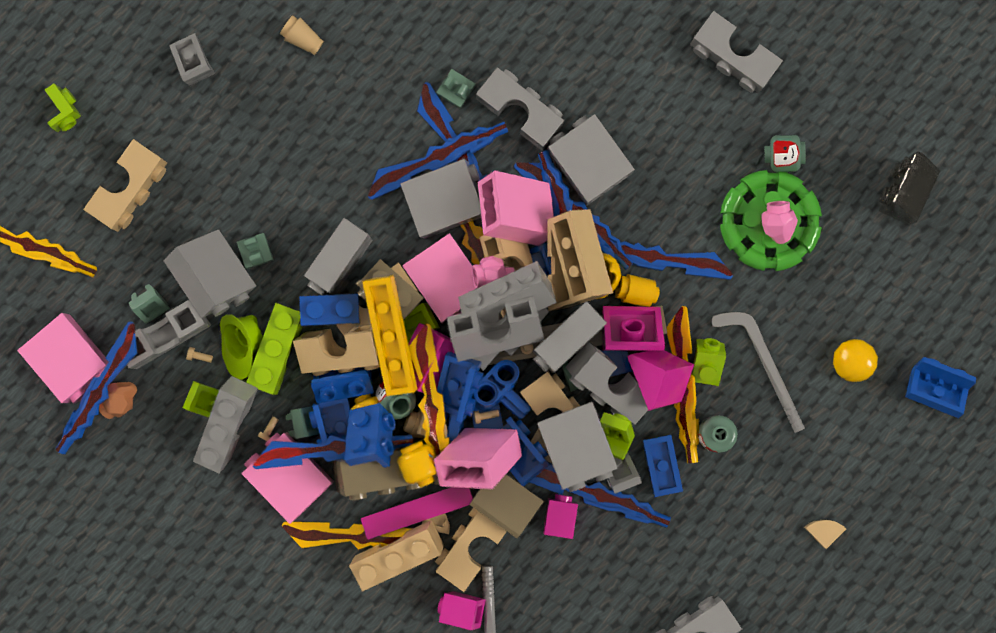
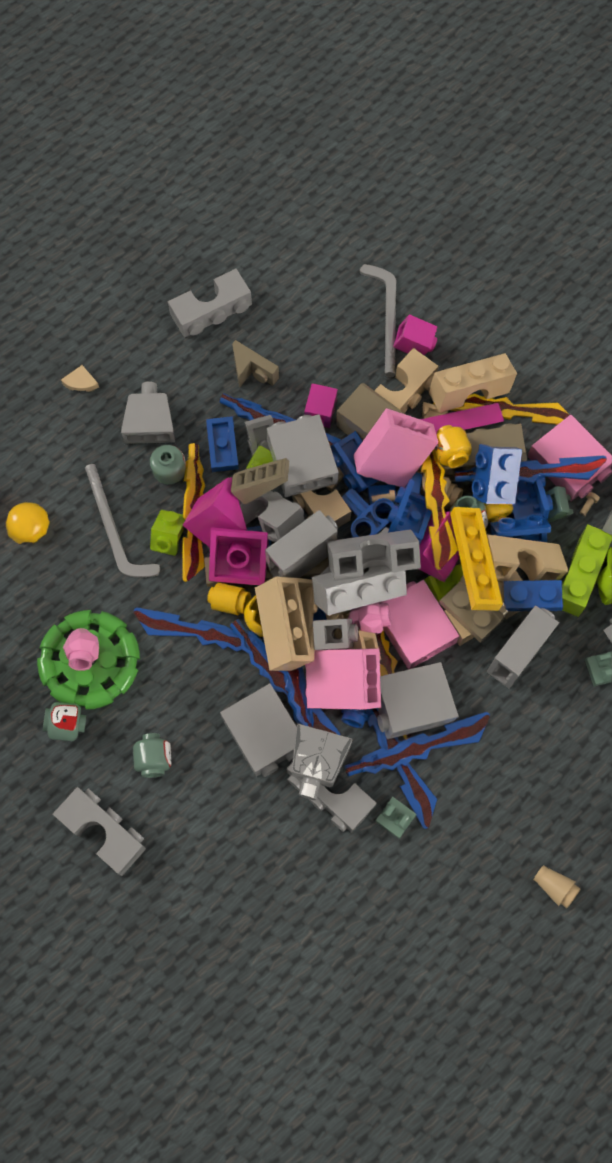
camera: 170 degrees left, 15 degrees down
(534, 243) = (325, 638): none -> light grey brick
(535, 126) = (317, 758): none -> light grey torso
(629, 402) = (258, 480): none -> dark tan slope
(646, 565) = (250, 362): none -> dark tan slope
(695, 127) = (152, 756): none -> sand green head
(745, 491) = (147, 417): none -> light grey torso

